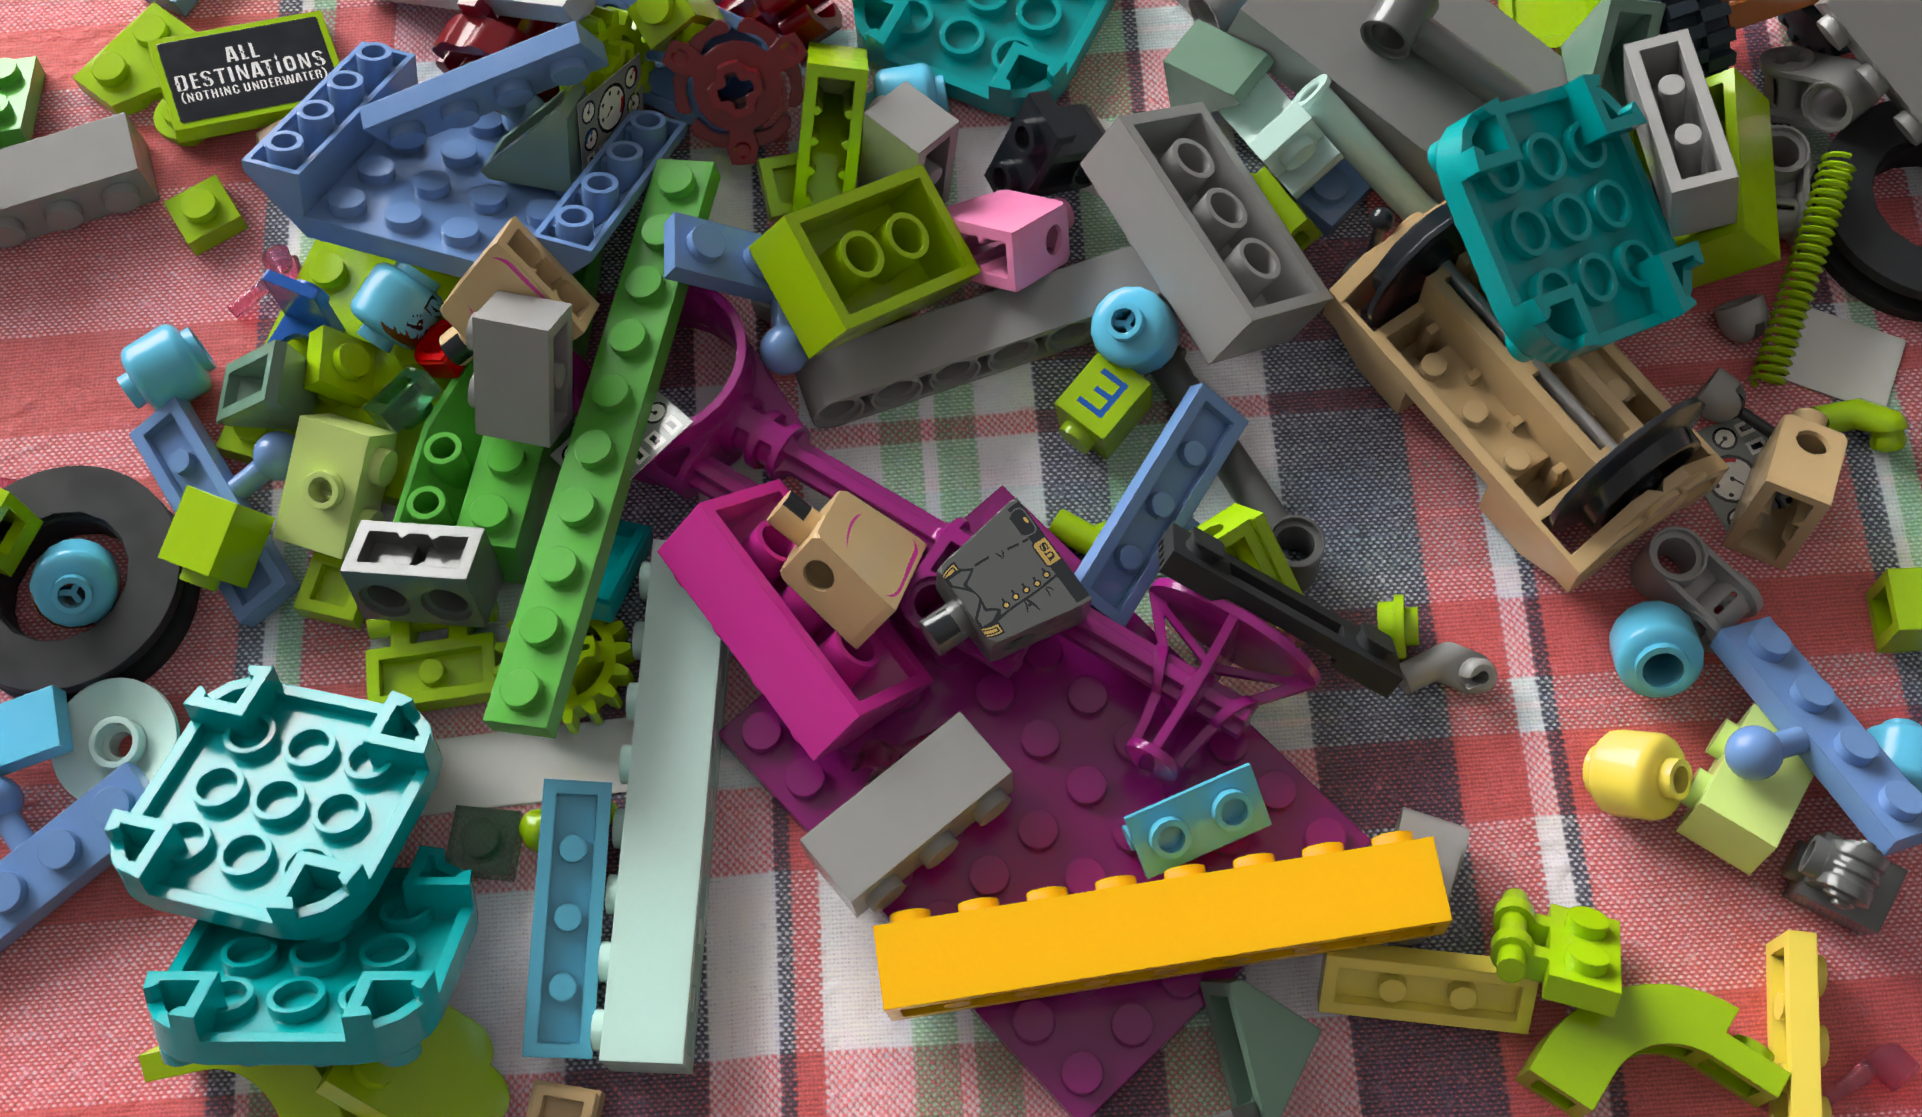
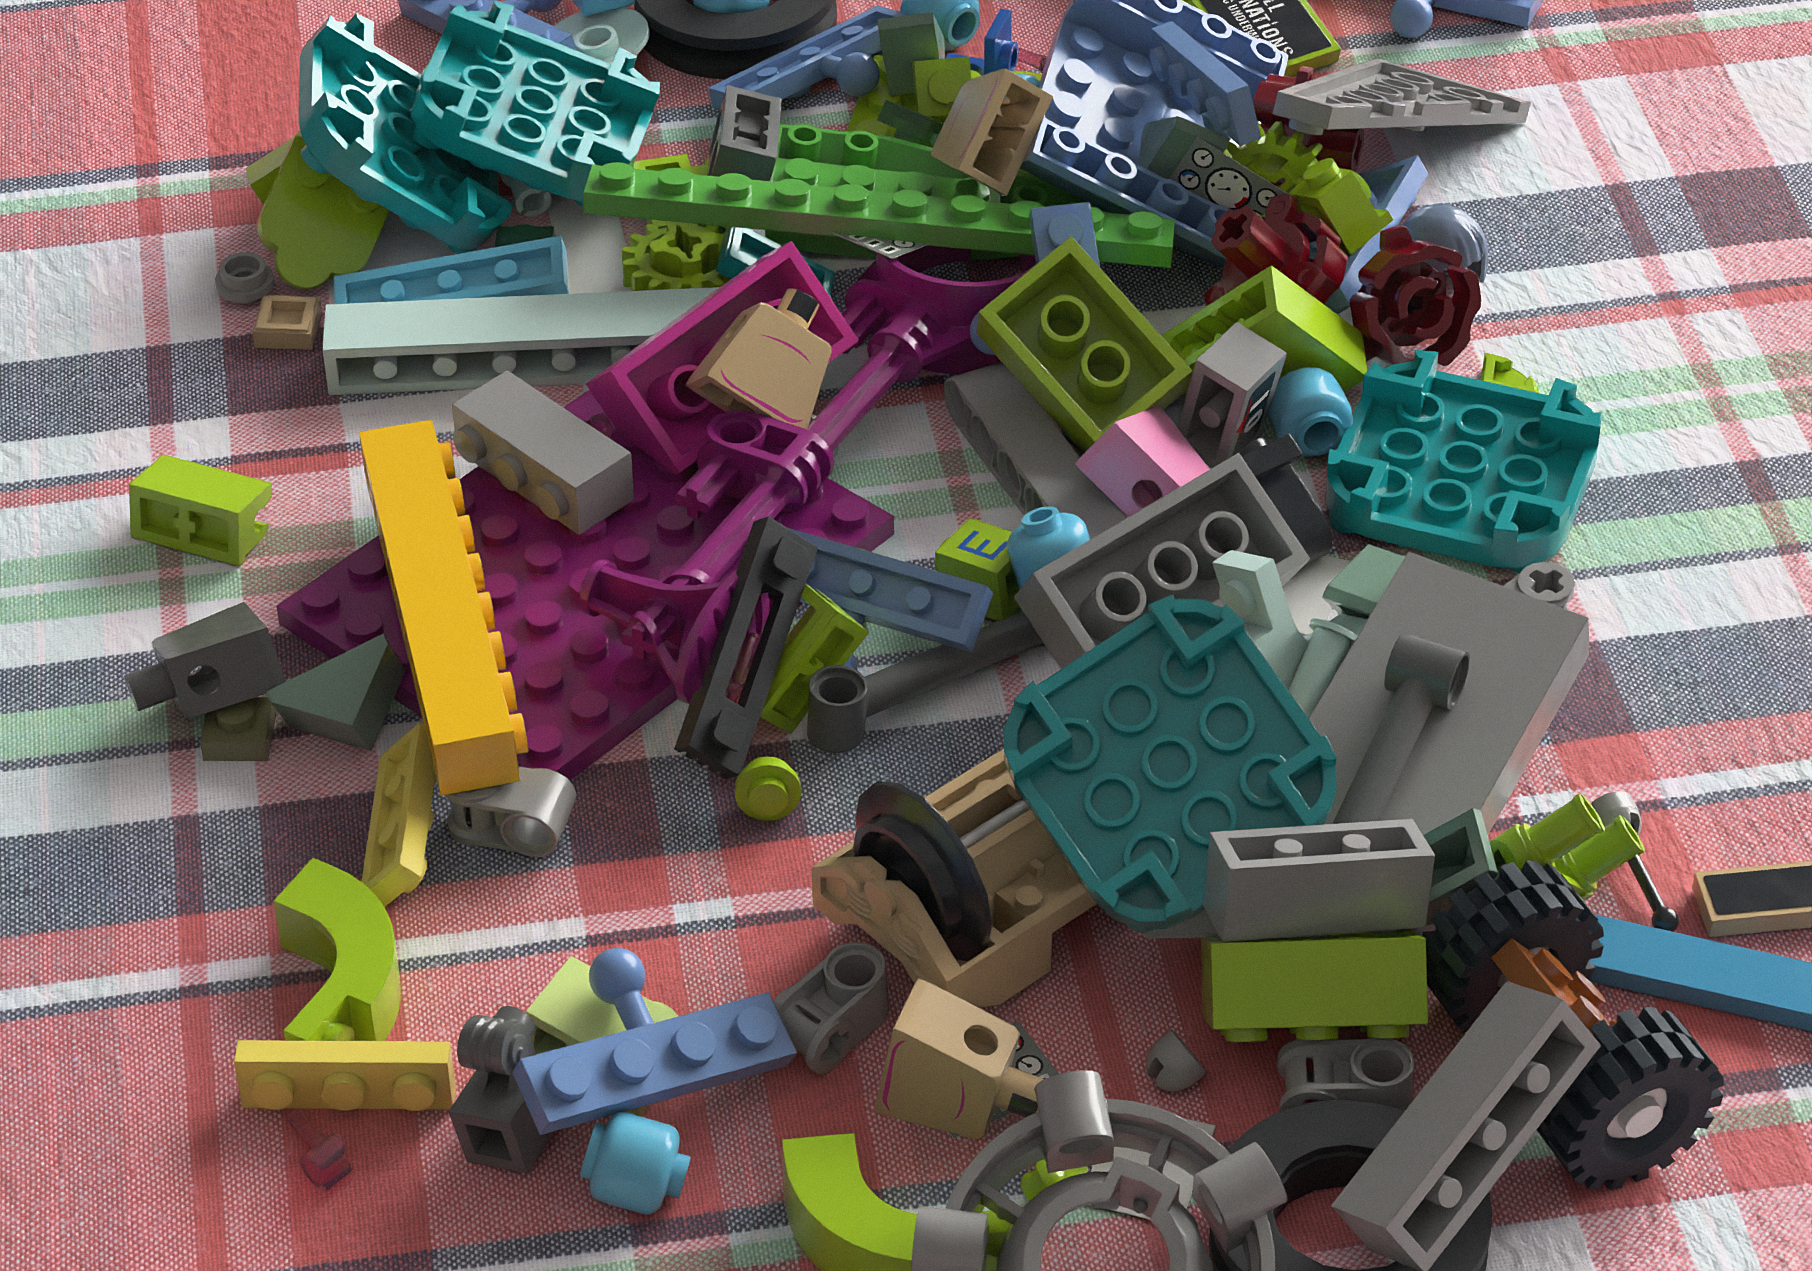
camera: 80 degrees right, 25 degrees down
(215, 540) = (769, 44): lime brick -> none
(334, 482) = (839, 95): yellowish green brick -> none
(521, 368) = (918, 136): light grey brick -> none
(1005, 589) = (743, 448): dark grey torso -> none
(1196, 821) = (545, 626): hinge -> none
(1450, 666) = (733, 835): light grey arm -> none
(1568, 951) = (419, 896): lime plate -> none
(1637, 774) = (616, 927): light yellow head -> none
(1656, 649) = (749, 959): medium azure head -> none
(1726, 401) = (1067, 1043): light grey hinge -> none
(1826, 213) = (1235, 1082): lime piece -> none

